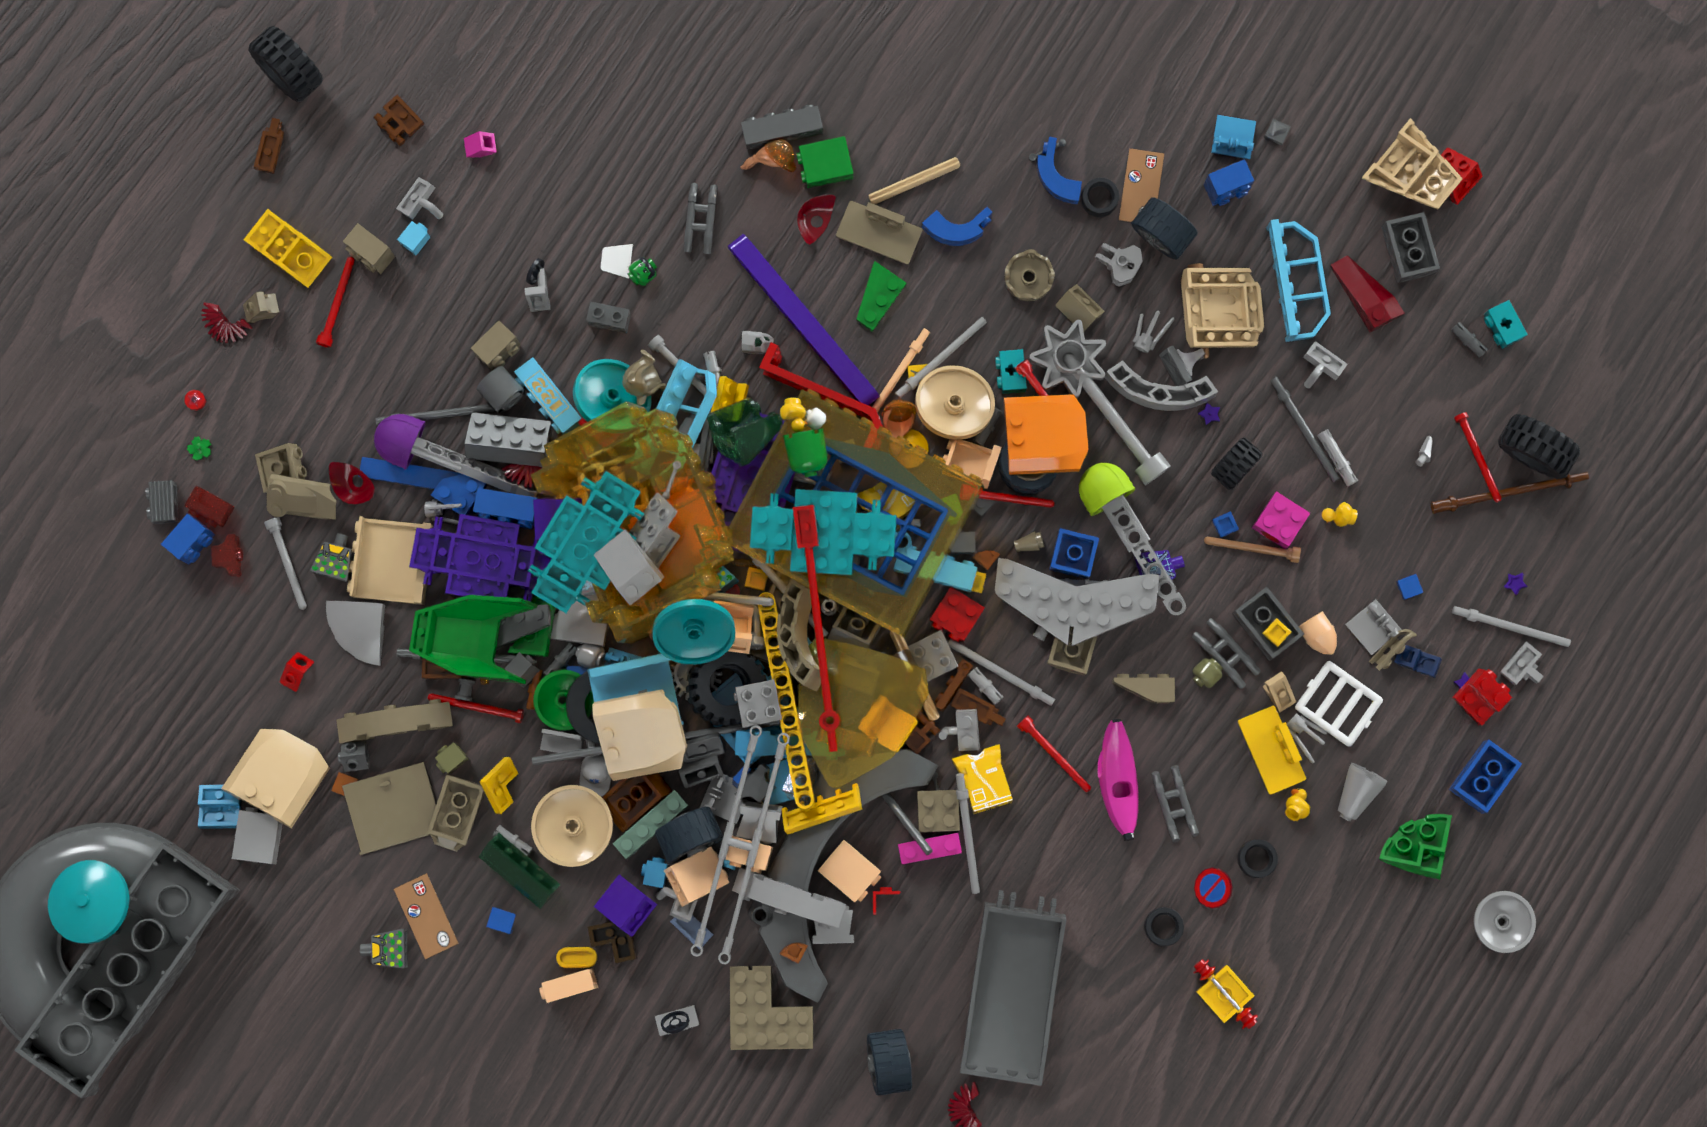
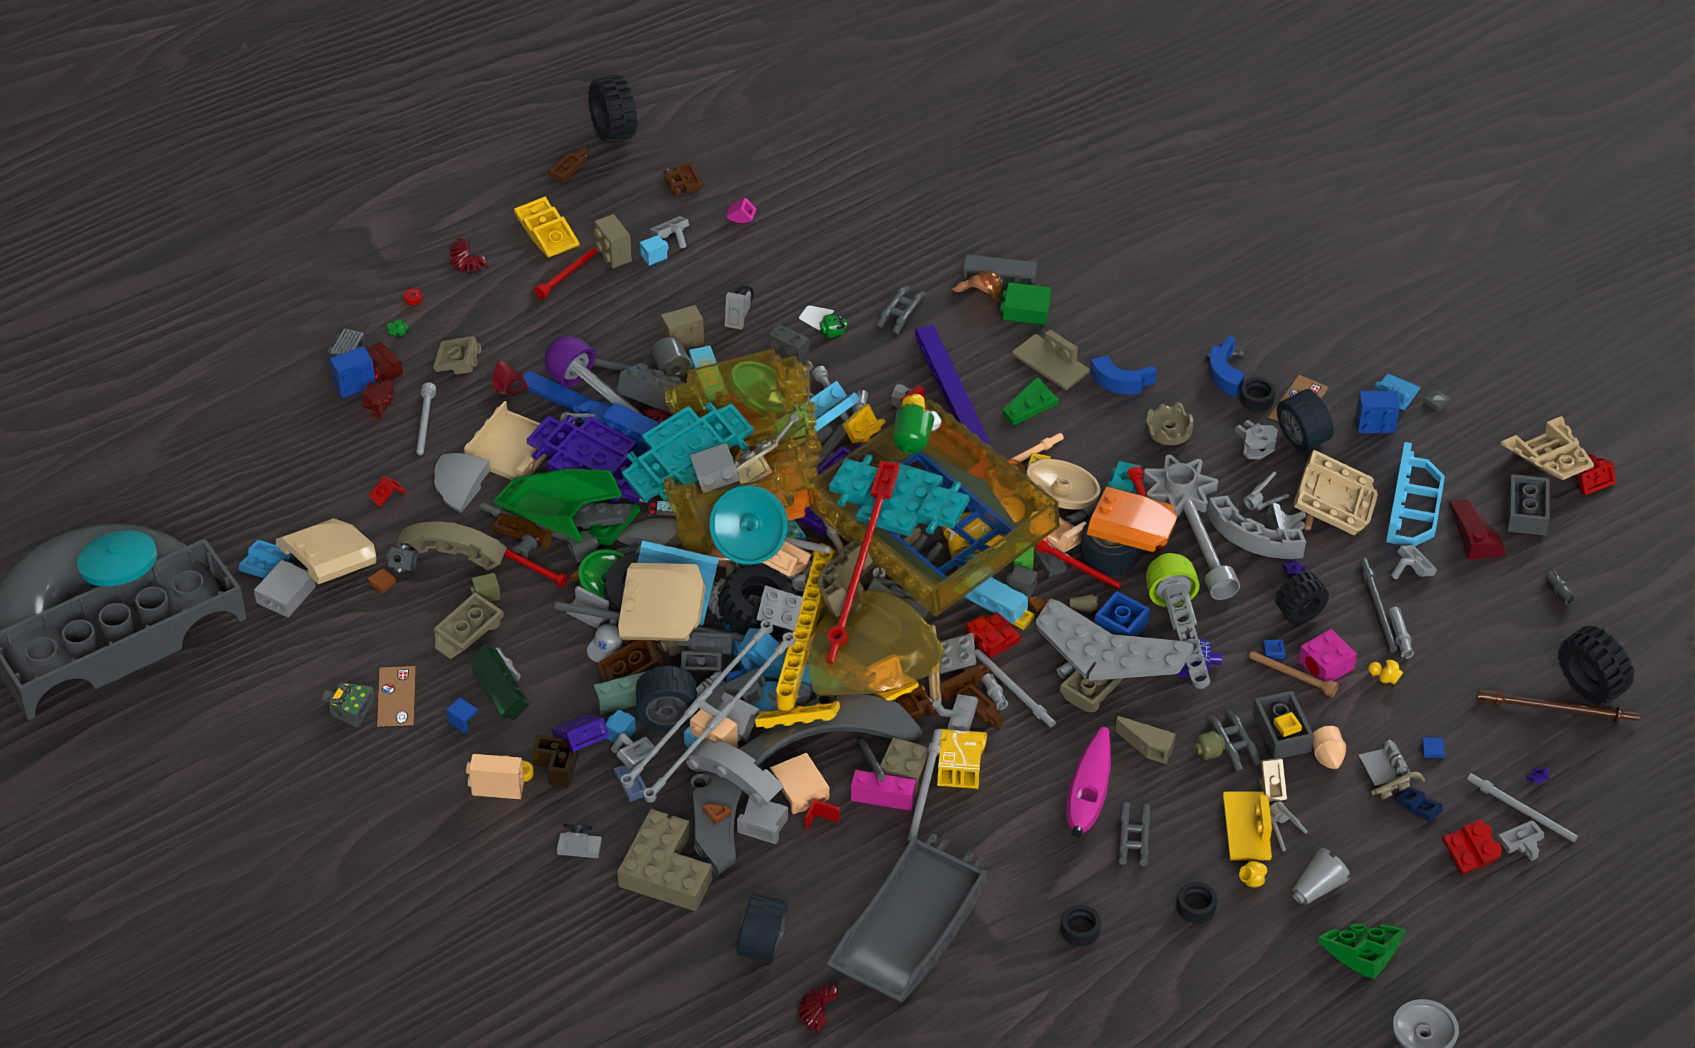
camera: 20 degrees right, 35 degrees down
(260, 307) = (503, 252): dark tan brick -> none
(300, 498) = (460, 375): dark tan slope -> none
(334, 560) = (462, 426): dark grey torso -> none
(392, 809) = (411, 607): dark tan piece -> none
(495, 785) = (513, 613): yellow plate -> none
(572, 825) = (564, 665): tan dish -> none
(695, 875) = (649, 729): light nougat brick -> none
(741, 431) = (864, 422): clear green windscreen -> none
(817, 206) = (1001, 328): dark red piece -> none
(913, 382) = (1071, 453): light grey bar -> none
(914, 180) = (1104, 338): tan axle -> none
(1028, 727) = (1019, 732): red piece -> none
(1079, 306) = (1210, 459): dark tan panel -> none
(1213, 887) = (1142, 908): piece -> none
(1225, 993) = (1117, 998): yellow plate -> none
(1317, 716) = (1314, 830): white bar -> none
(1425, 451) = (1486, 655): light grey bar -> none
(1462, 420) = (1532, 640): red bar -> none
(1485, 776) = (1450, 907): blue brick -> none
(1504, 314) = (1598, 586): teal brick -> none

